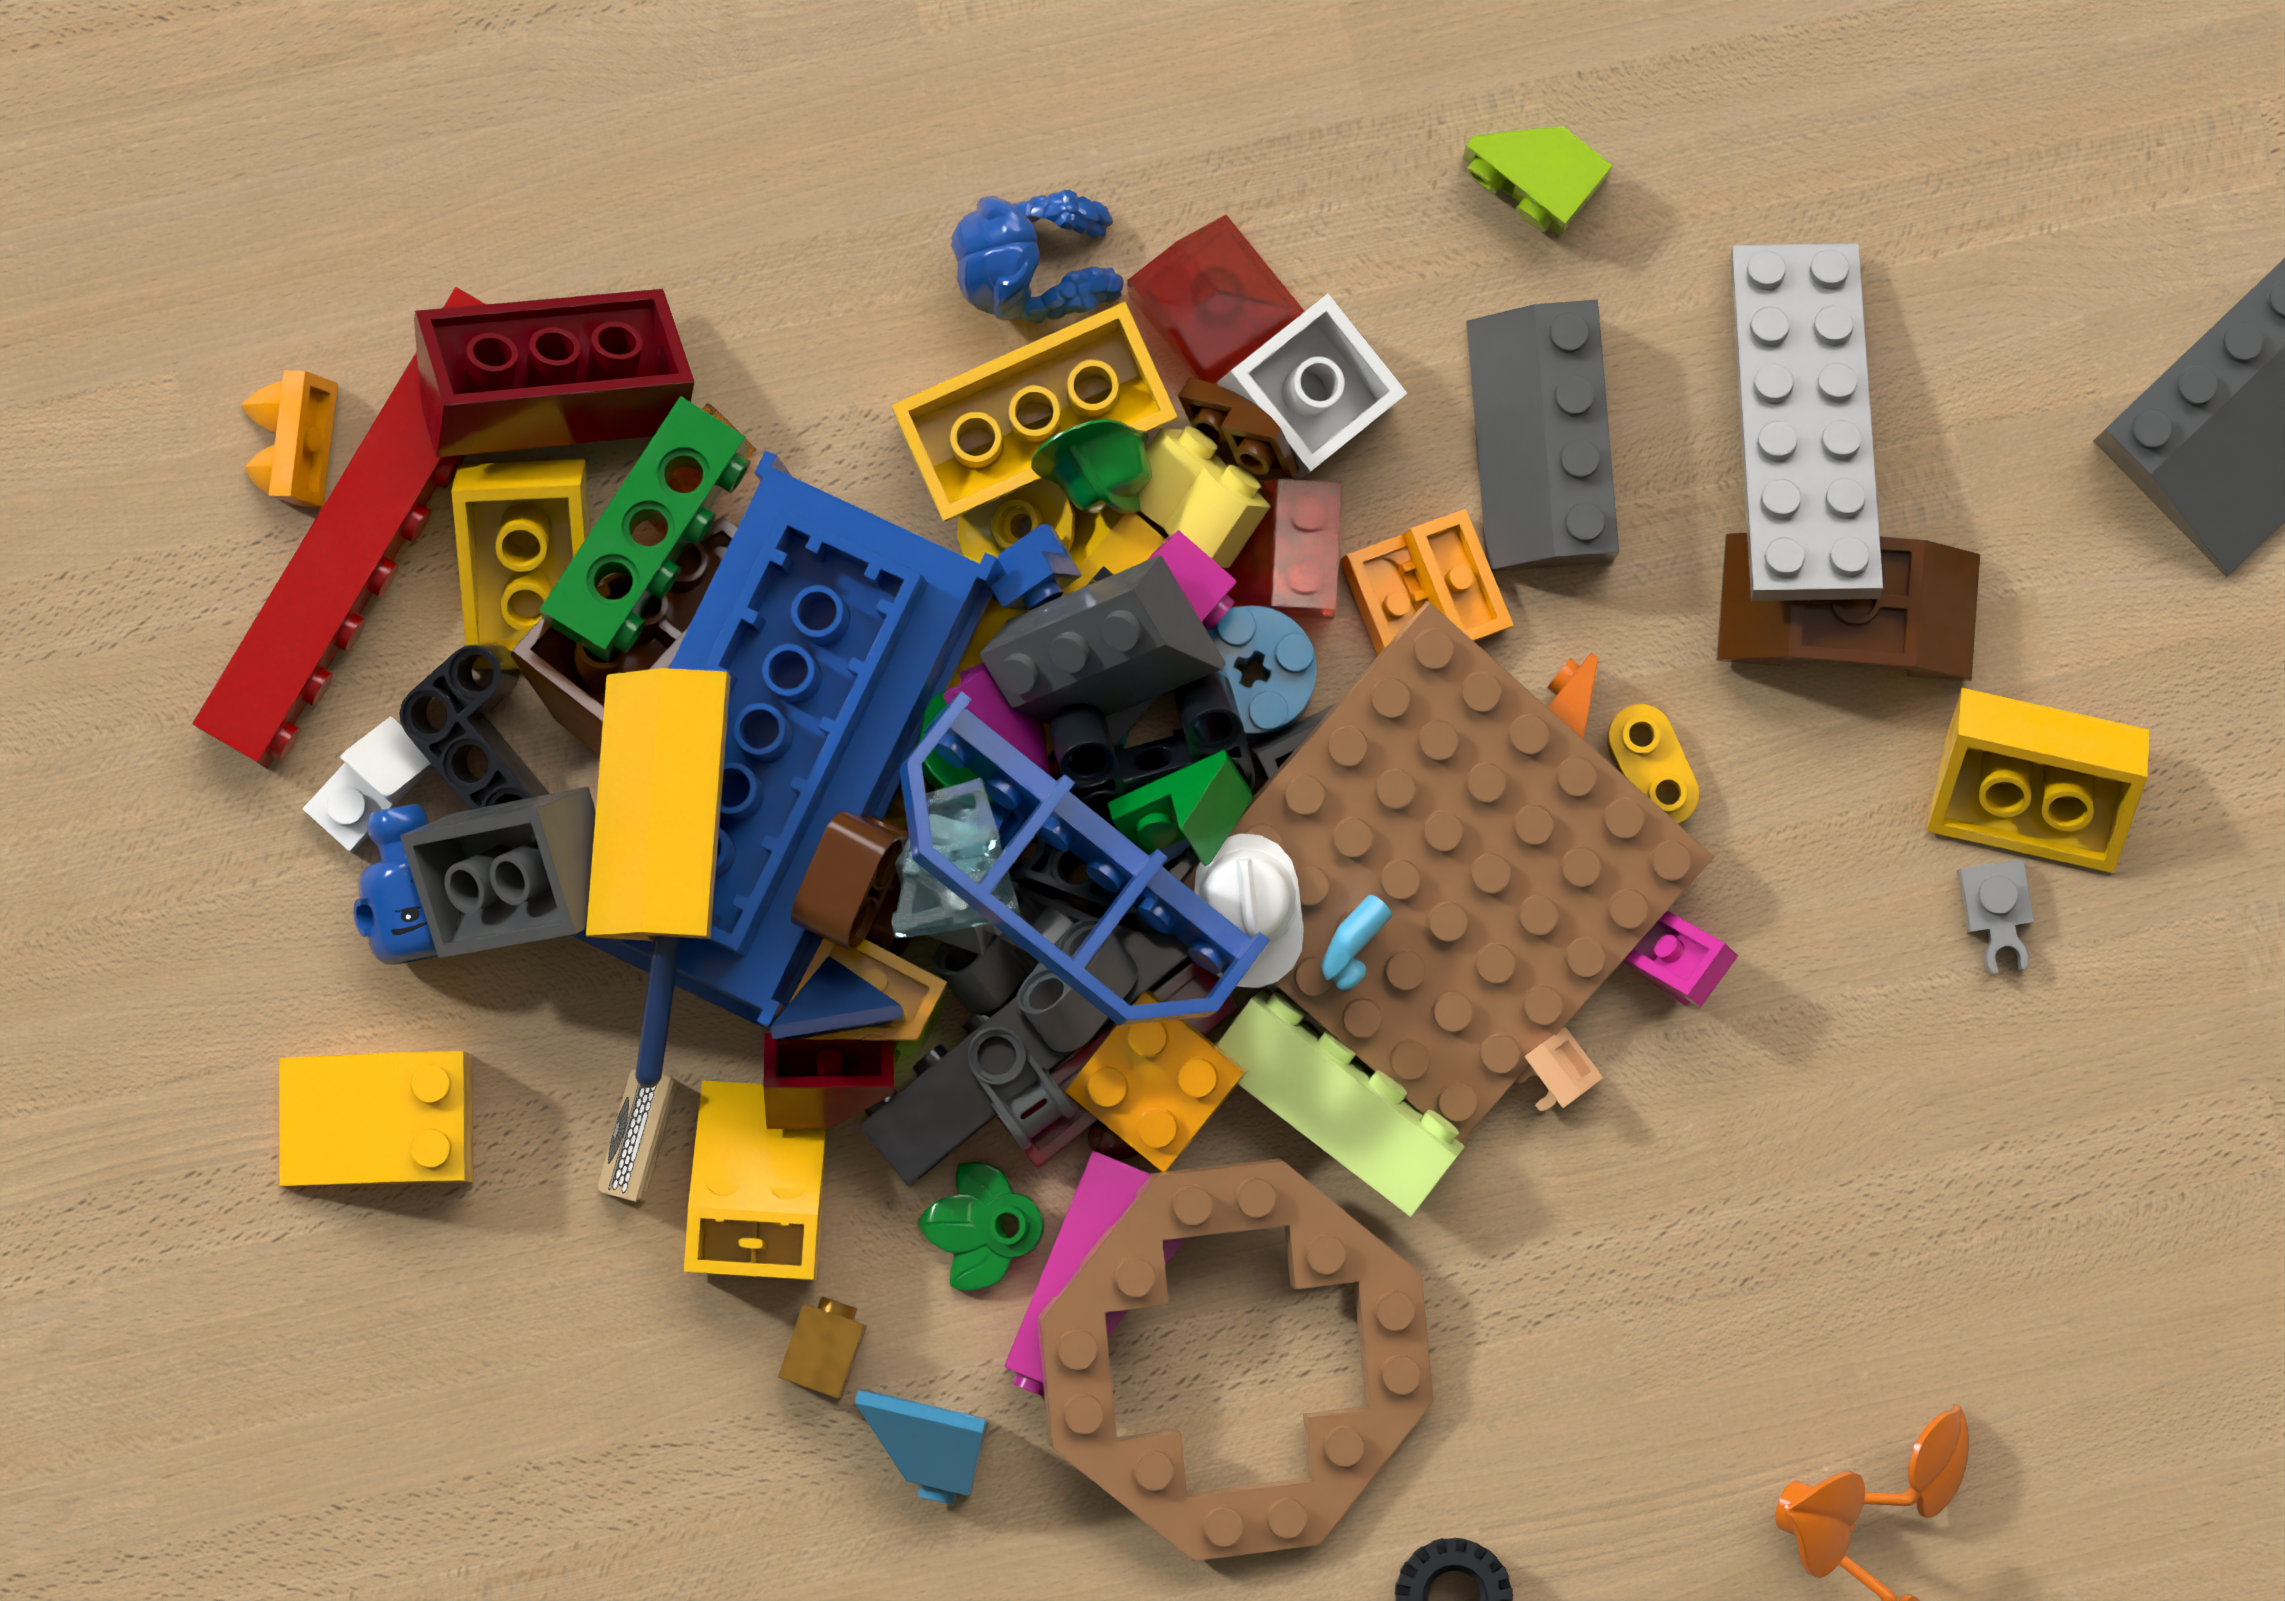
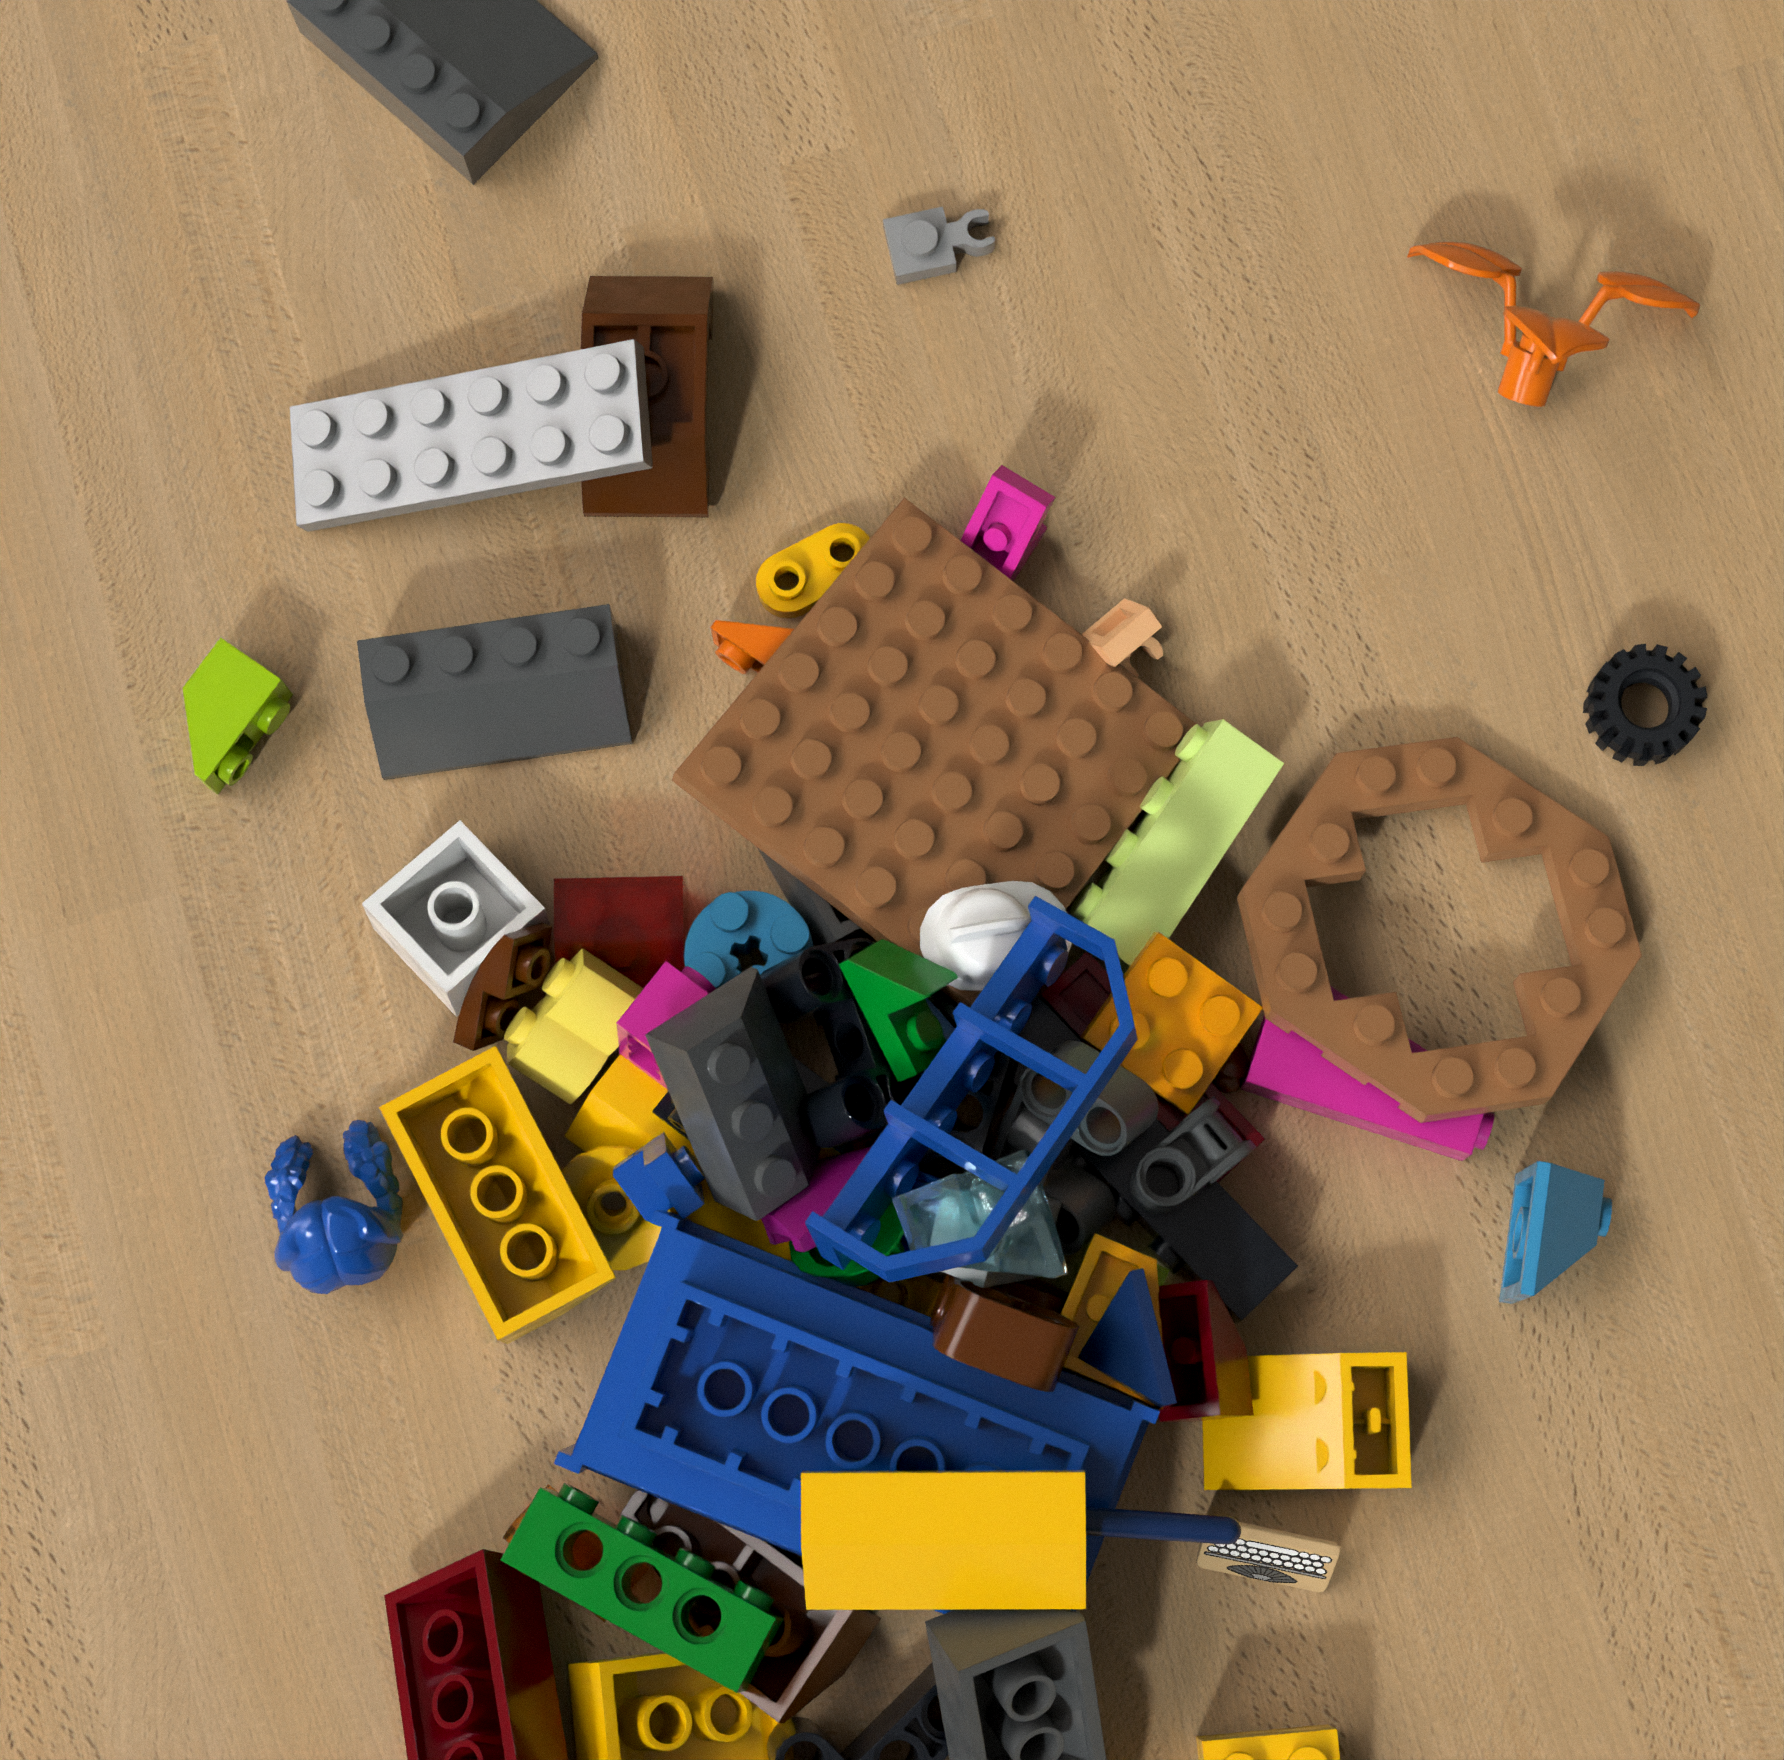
camera: 90 degrees left, 5 degrees down
(823, 1347) = (1467, 1342): pearl gold brick -> none
(973, 1226) = (1329, 1201): green plate -> none
(1097, 465) = (551, 1120): green piece -> none
(1213, 299) = (373, 1027): clear red slope -> none
(1349, 939) = (1015, 830): medium azure arm -> none
(1430, 564) = (640, 808): light orange slope -> none
(2039, 780) = (805, 207): yellow slope -> none

